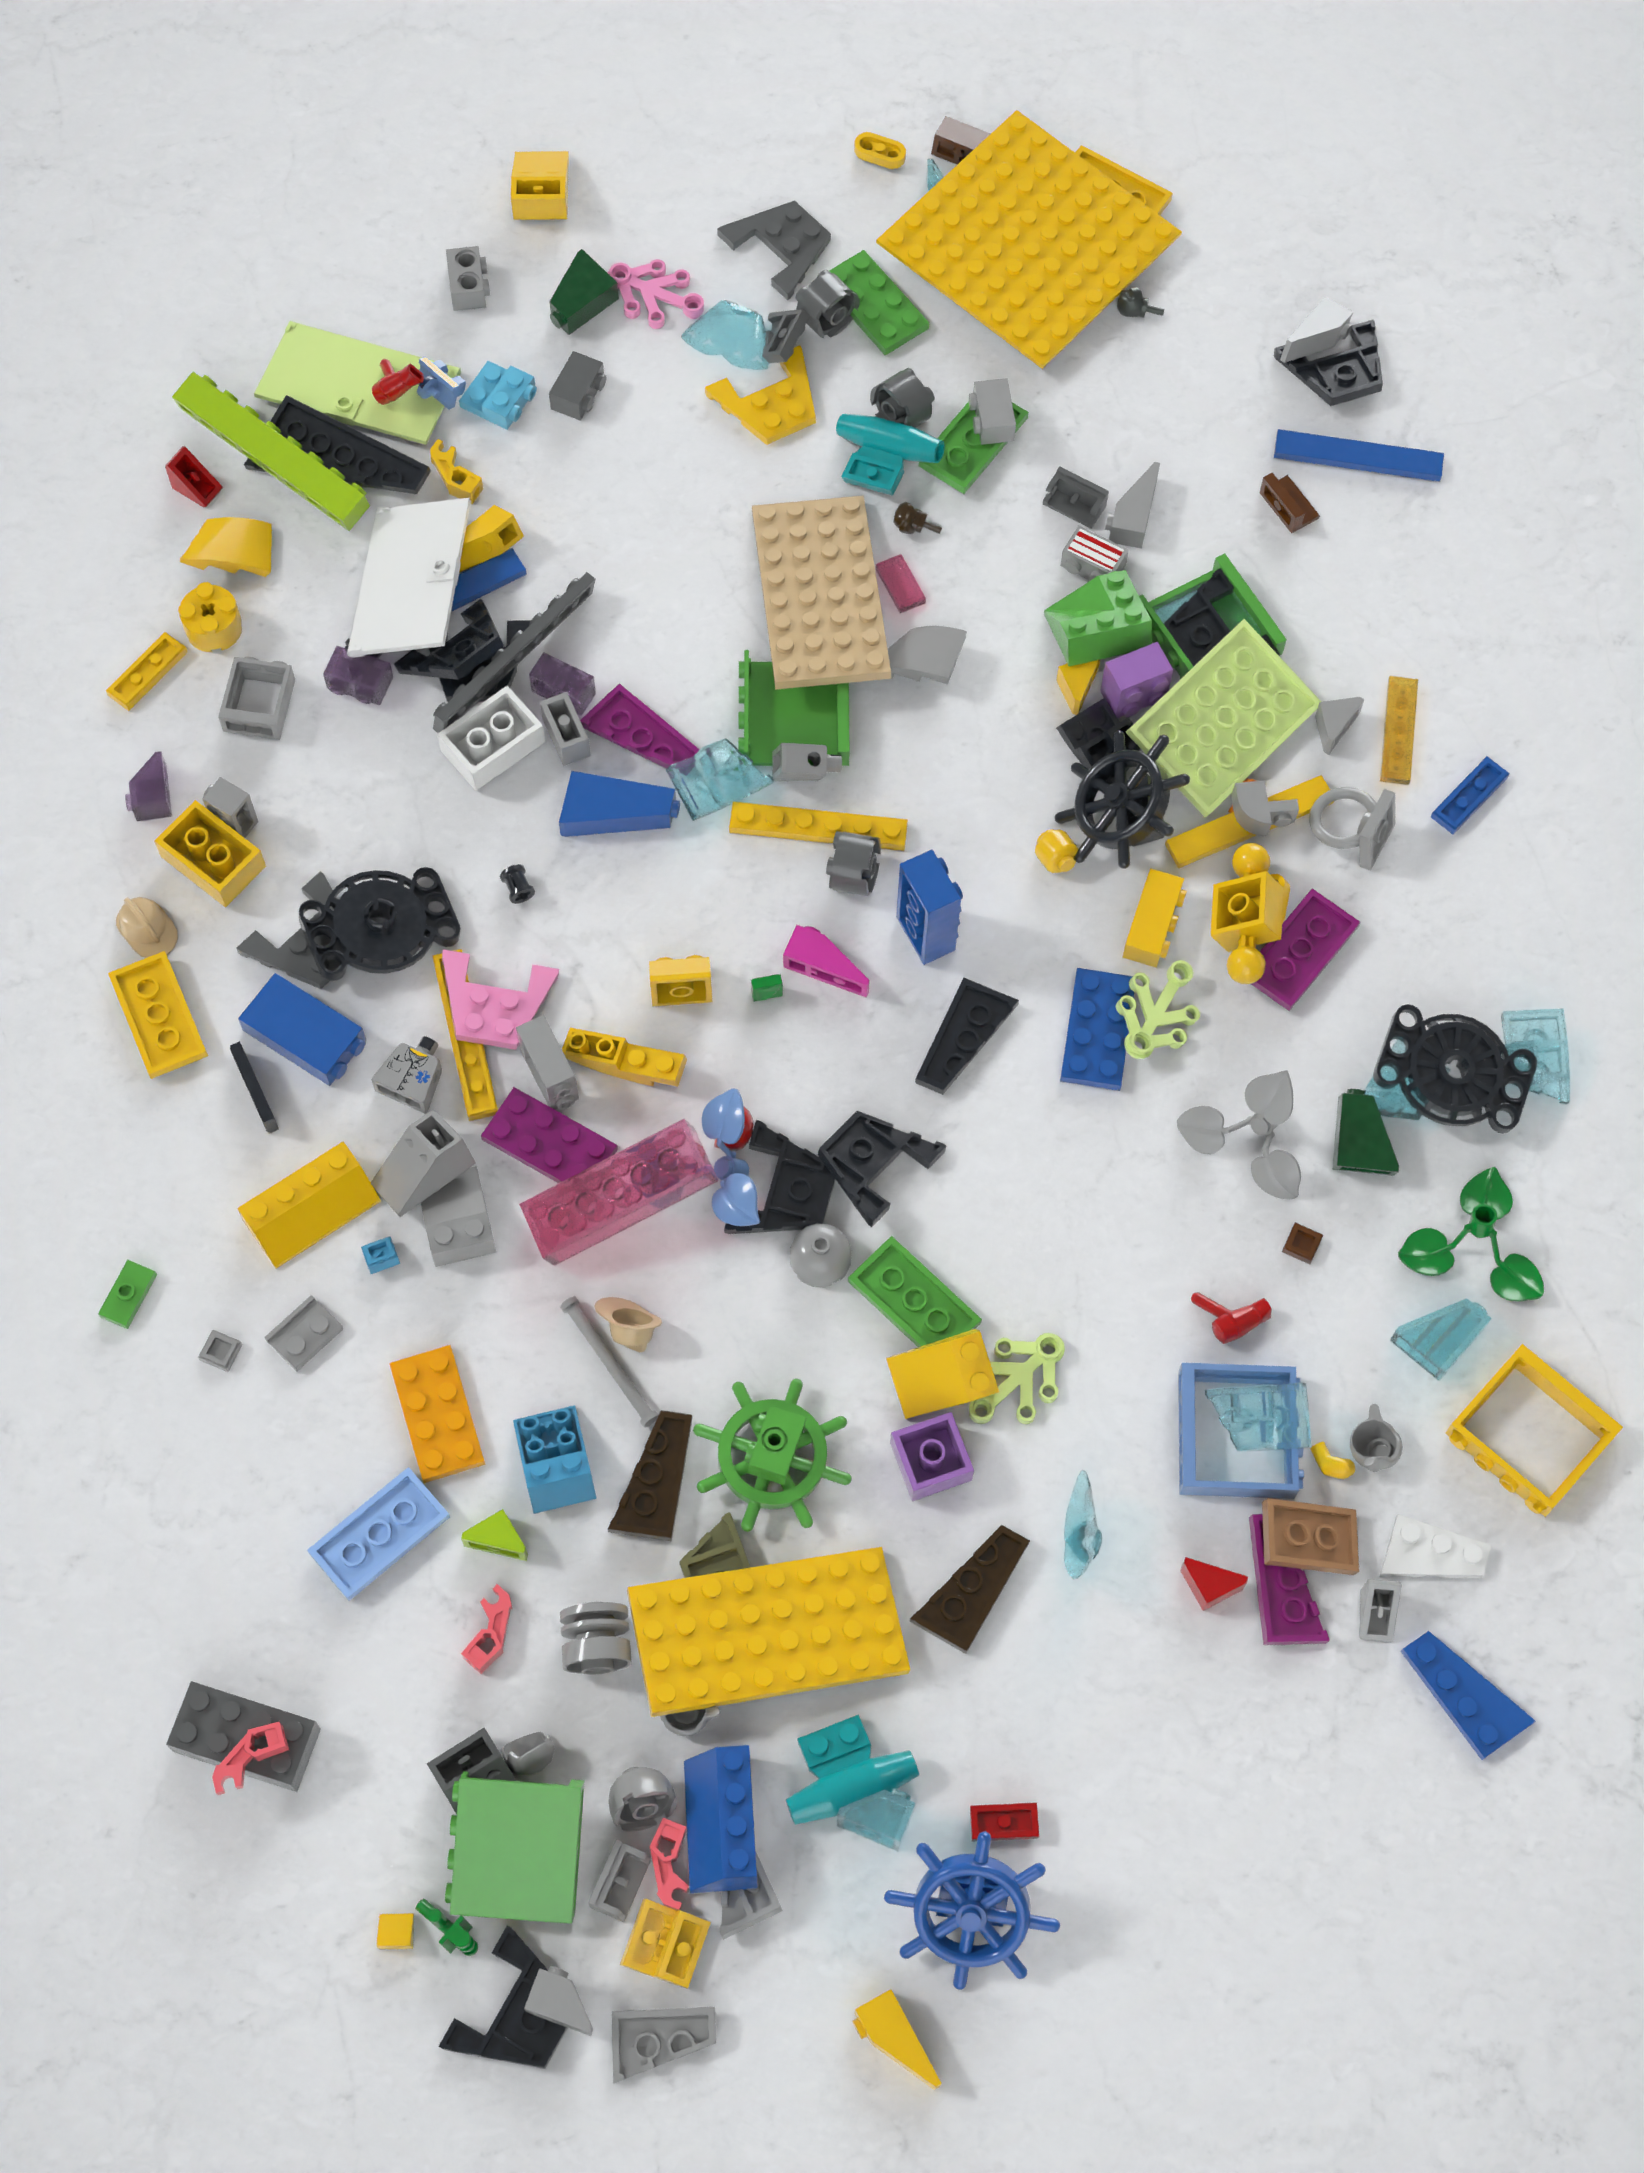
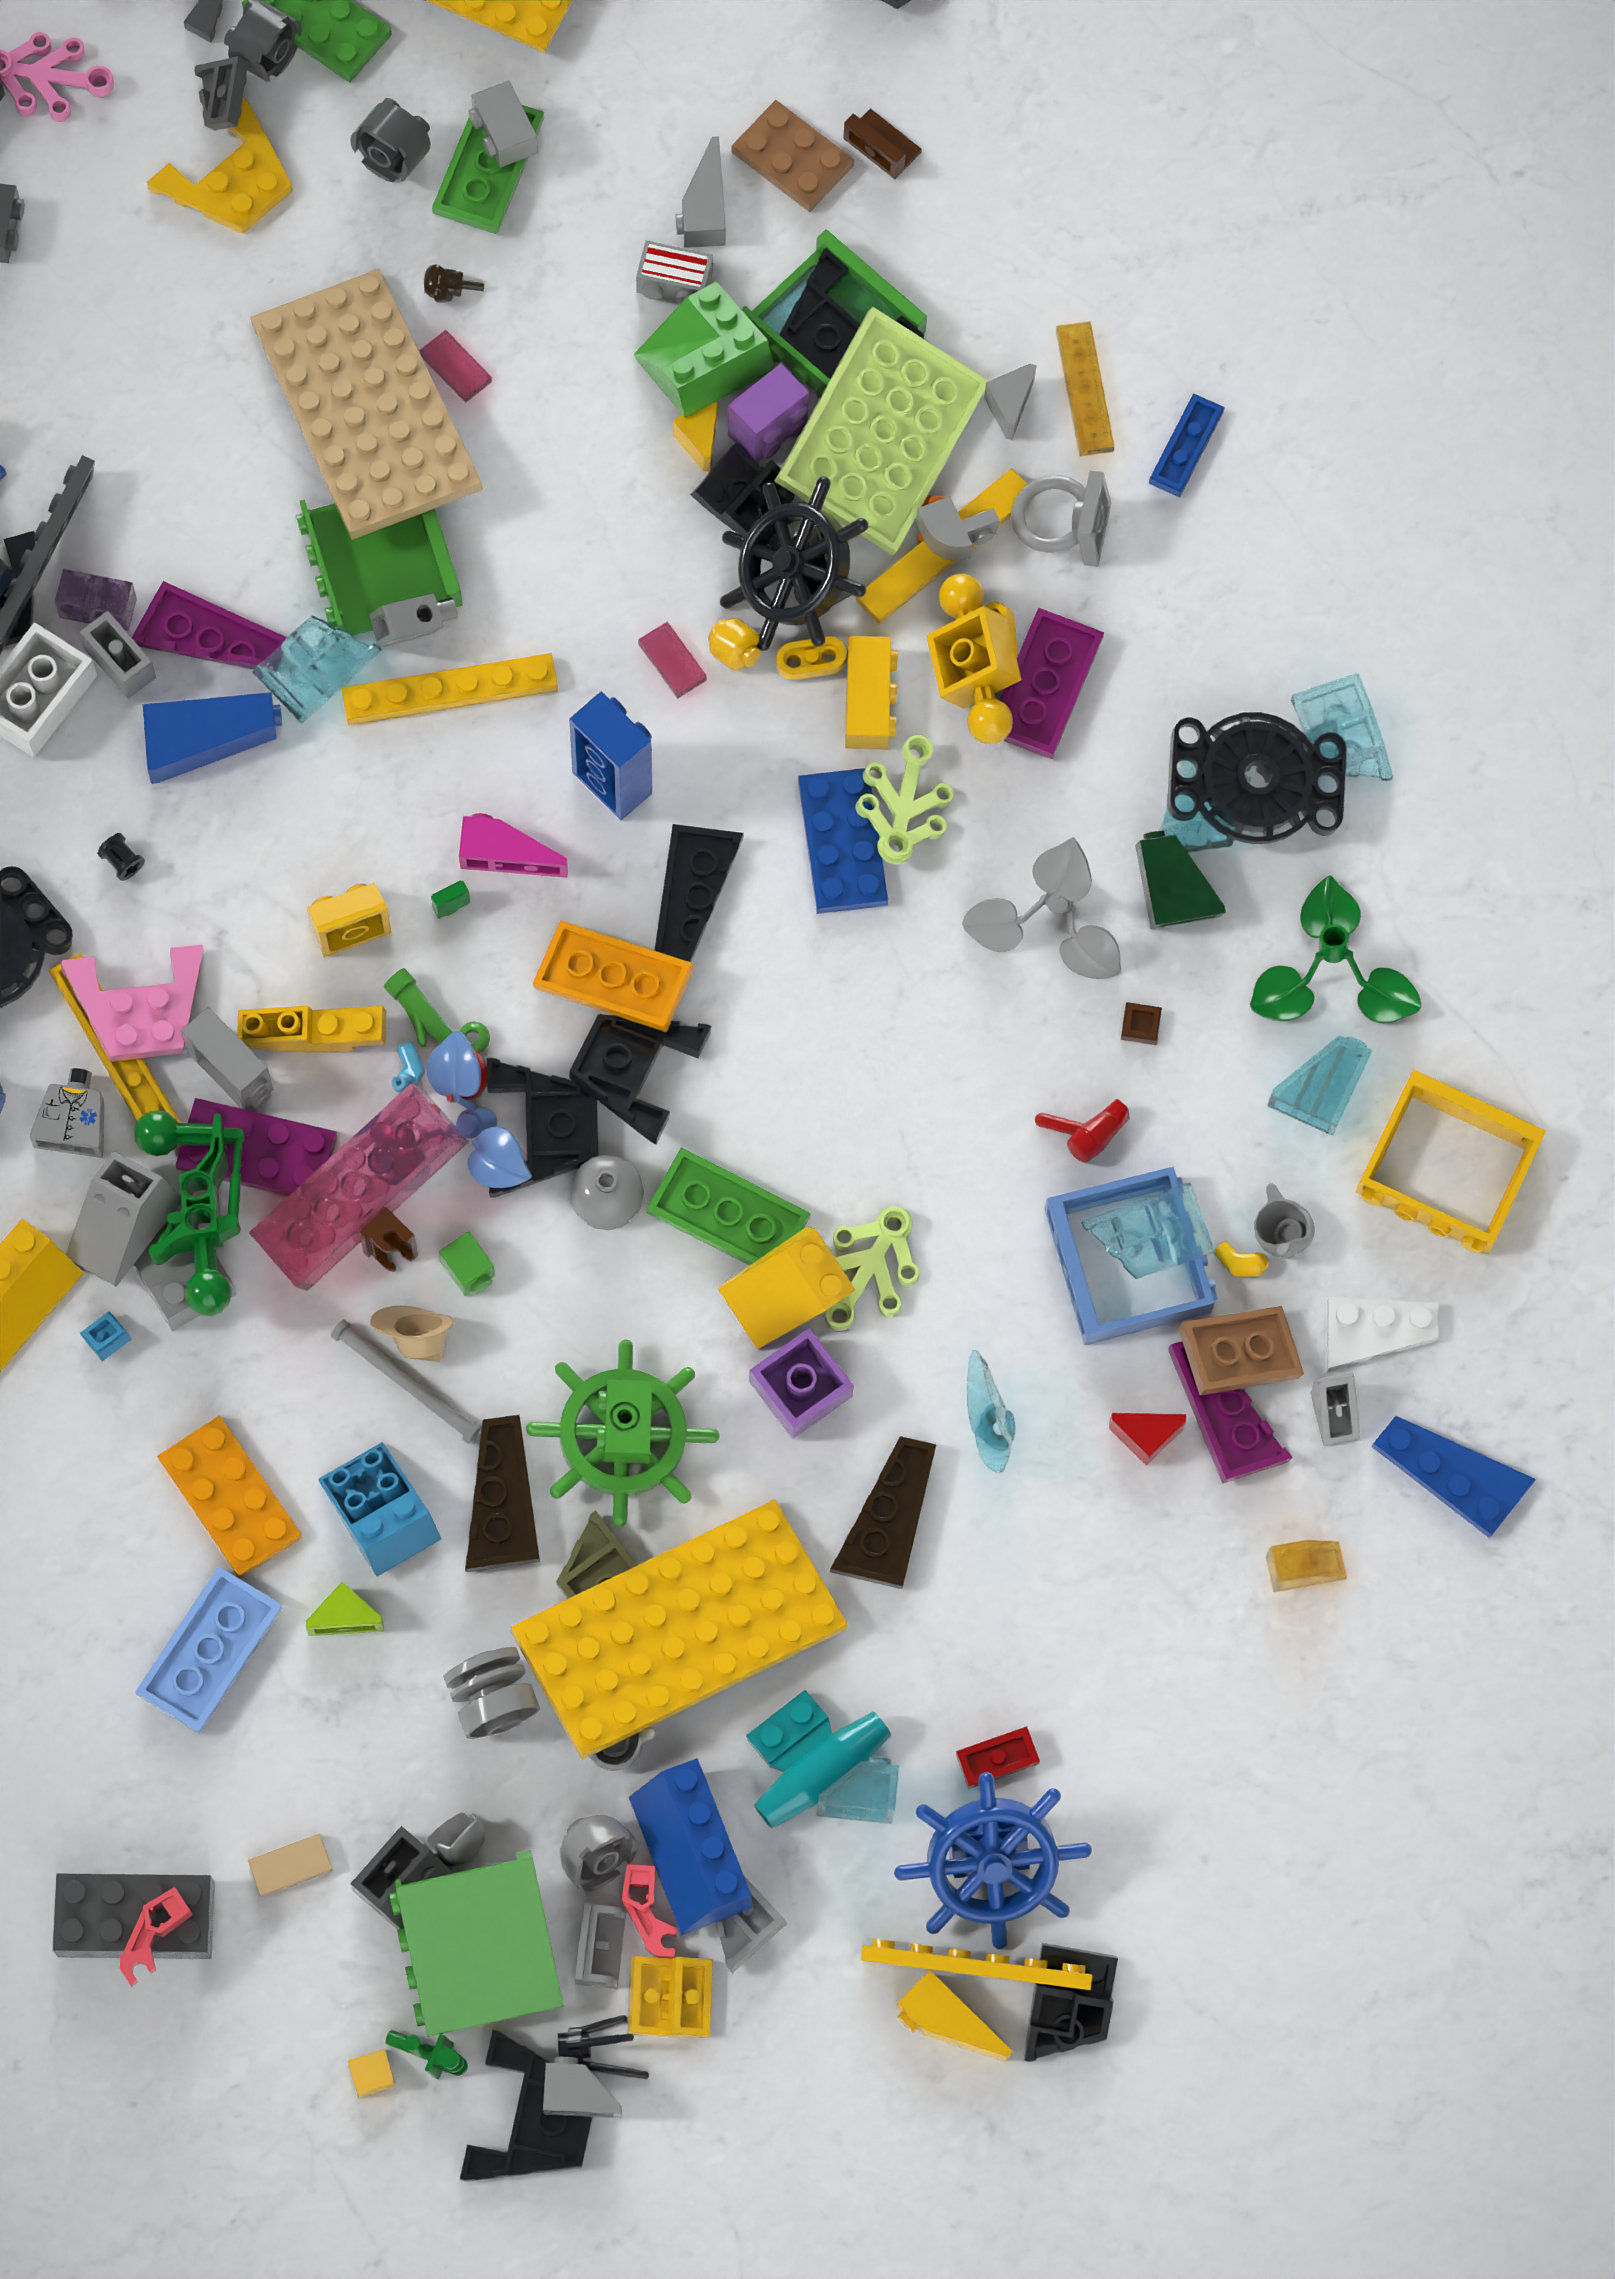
camera: 20 degrees left, 5 degrees up
(303, 1333) = (47, 1450): light grey plate -> none
(386, 1733) = (290, 1865): none -> tan tile
(474, 1105) = (158, 1135): none -> green piece
(498, 1621) = (374, 1703): coral piece -> none
(574, 1961) = (578, 2044): none -> black plant
(628, 1238) = (387, 1235): none -> reddish brown hinge
(657, 2036) = (692, 2097): light grey wing -> none
(688, 1280) = (467, 1264): none -> bright green brick
(695, 1109) = (412, 1067): none -> medium azure arm
(716, 1072) = (423, 1015): none -> bright green plant
(730, 330) = (156, 101): clear light blue piece -> none
(854, 863) = (507, 724): dark grey brick -> none
(878, 1083) = (613, 976): none -> light orange plate
(883, 450) = (387, 207): teal plate -> none
(927, 653) = (514, 445): light grey slope -> none
(946, 2003) = (959, 1962): none -> yellow plate
(1003, 851) = (672, 660): none -> clear pink tile
(1004, 2053) = (1070, 2016): none -> black slope
(1076, 497) = (631, 204): dark grey hinge -> none
(1115, 879) = (810, 658): none -> yellow plate
(1215, 494) = (792, 155): none -> medium nougat plate
(1315, 1734) = (1304, 1564): none -> clear yellow slope
(1359, 455) = (946, 61): blue tile -> none

